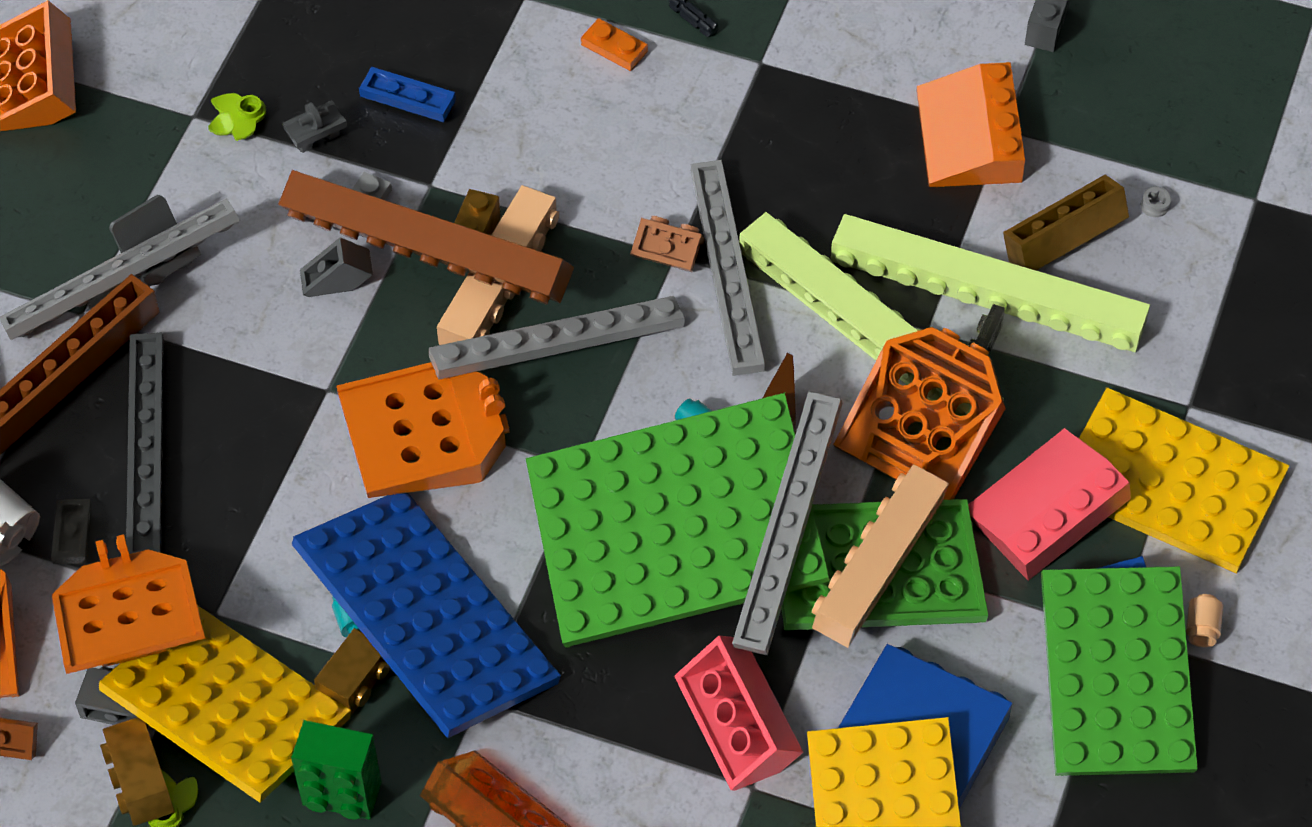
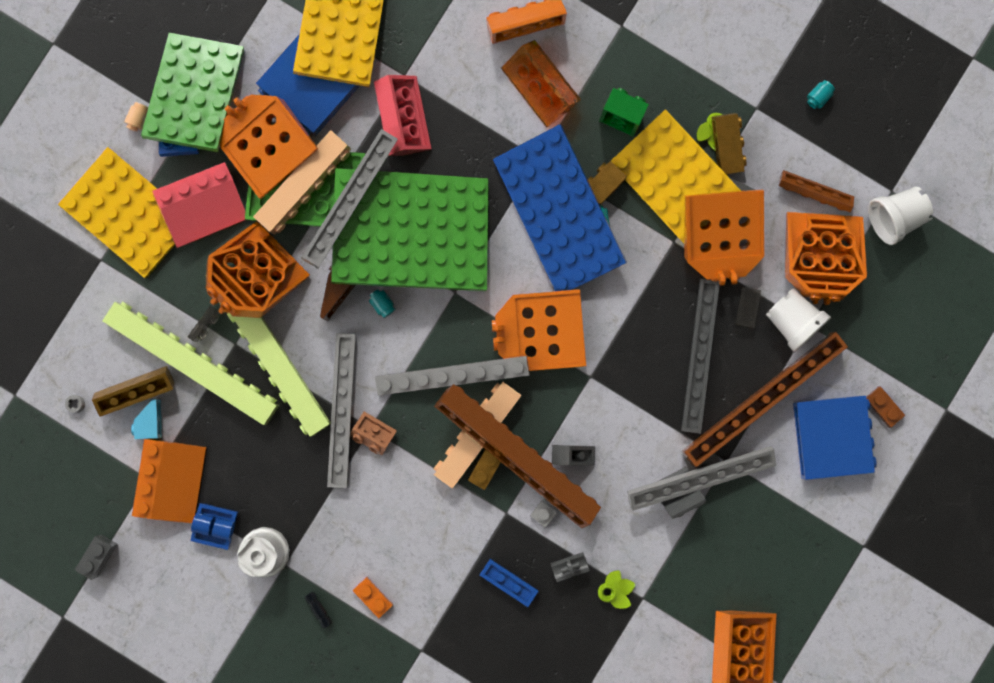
camera: 170 degrees left, 30 degrees up
(797, 55) = (263, 552): none -> white piece
(883, 85) = (213, 526): none -> blue plate
(964, 605) = (243, 125): none -> orange hinge
(1028, 188) = (148, 422): none -> medium azure slope

